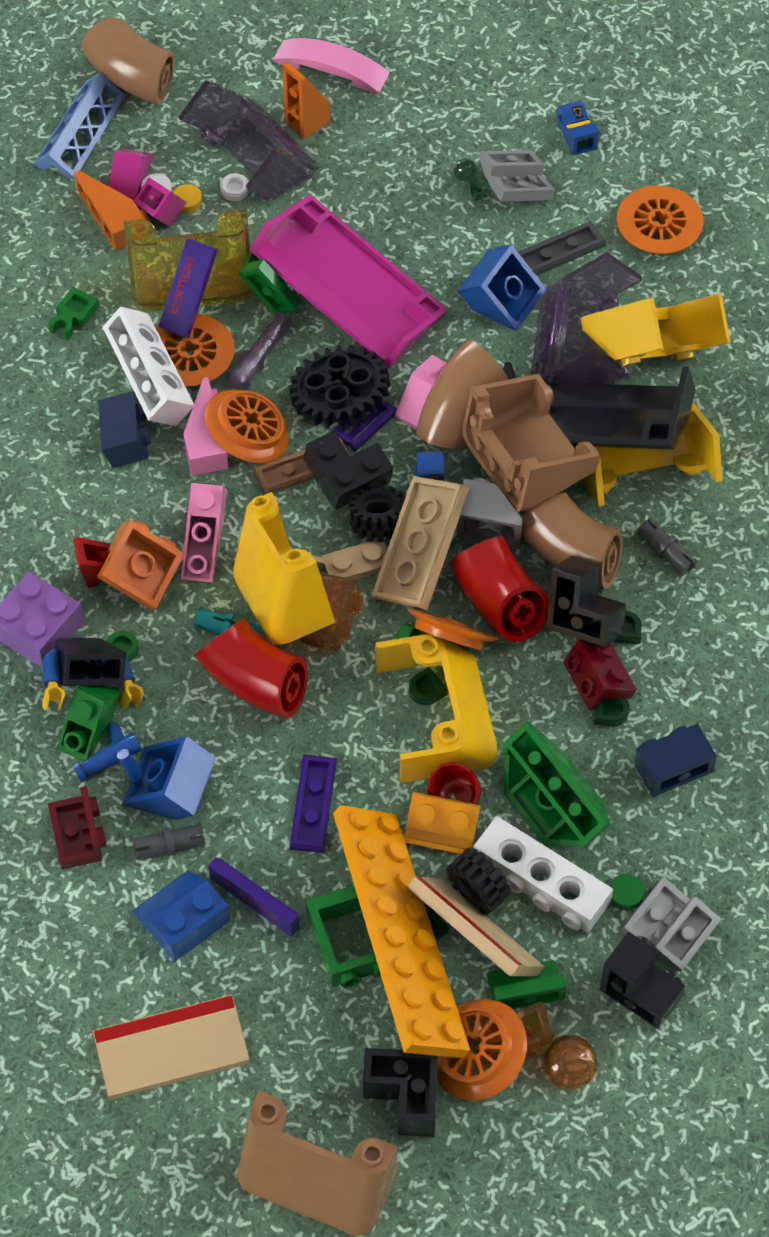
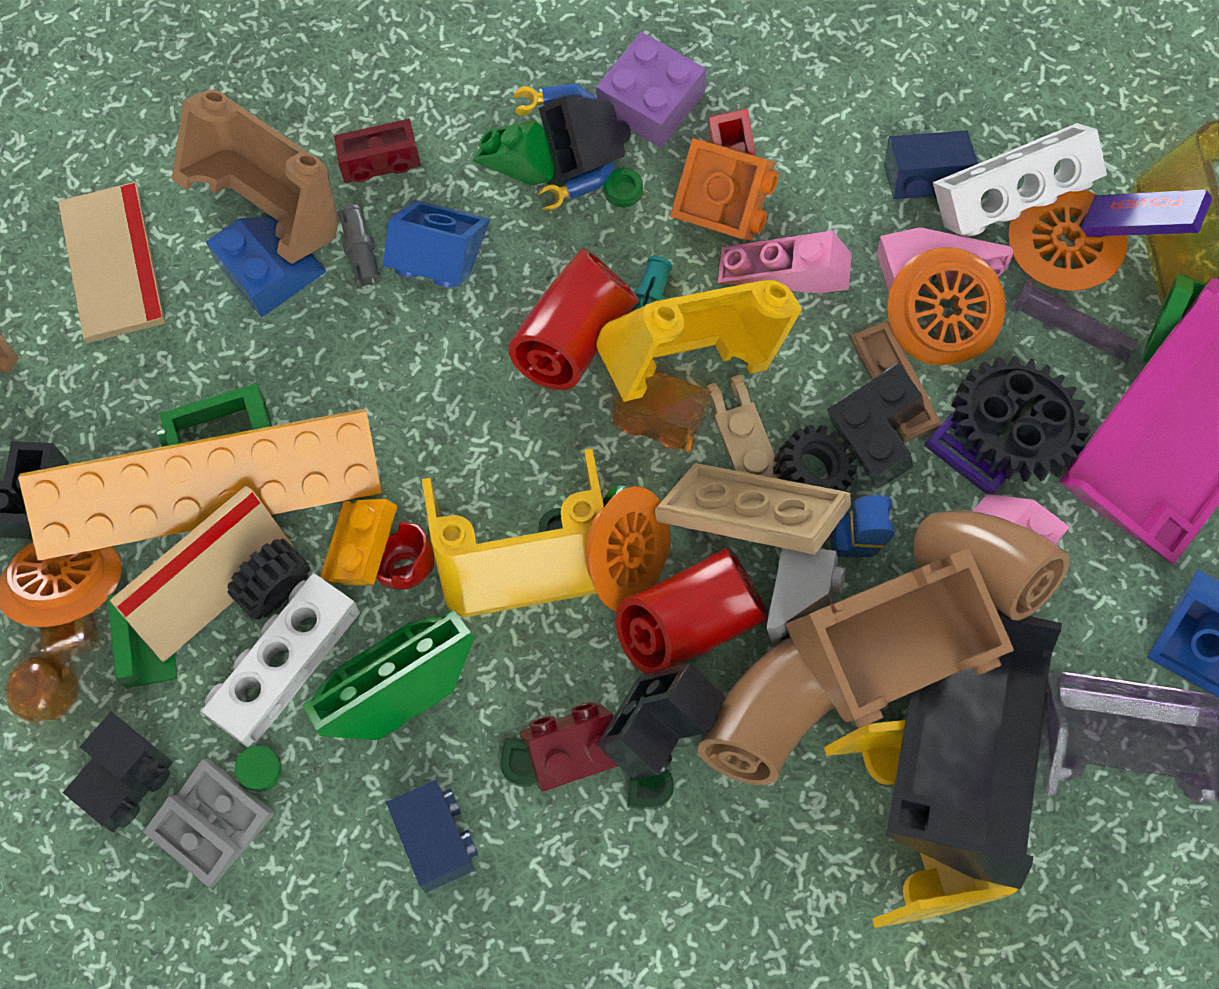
camera: 95 degrees right, 10 degrees up
(74, 309) = (1119, 107): green plate -> none
(110, 892) = (238, 151): none -> medium nougat windscreen
(119, 751) = (471, 182): blue piece -> none
(254, 896) = (278, 334): dark purple tile -> none
(313, 803) = (405, 401): dark purple tile -> none
(650, 332) = (1139, 832): yellow windscreen -> none
(666, 546) = (778, 849): dark grey pin -> none

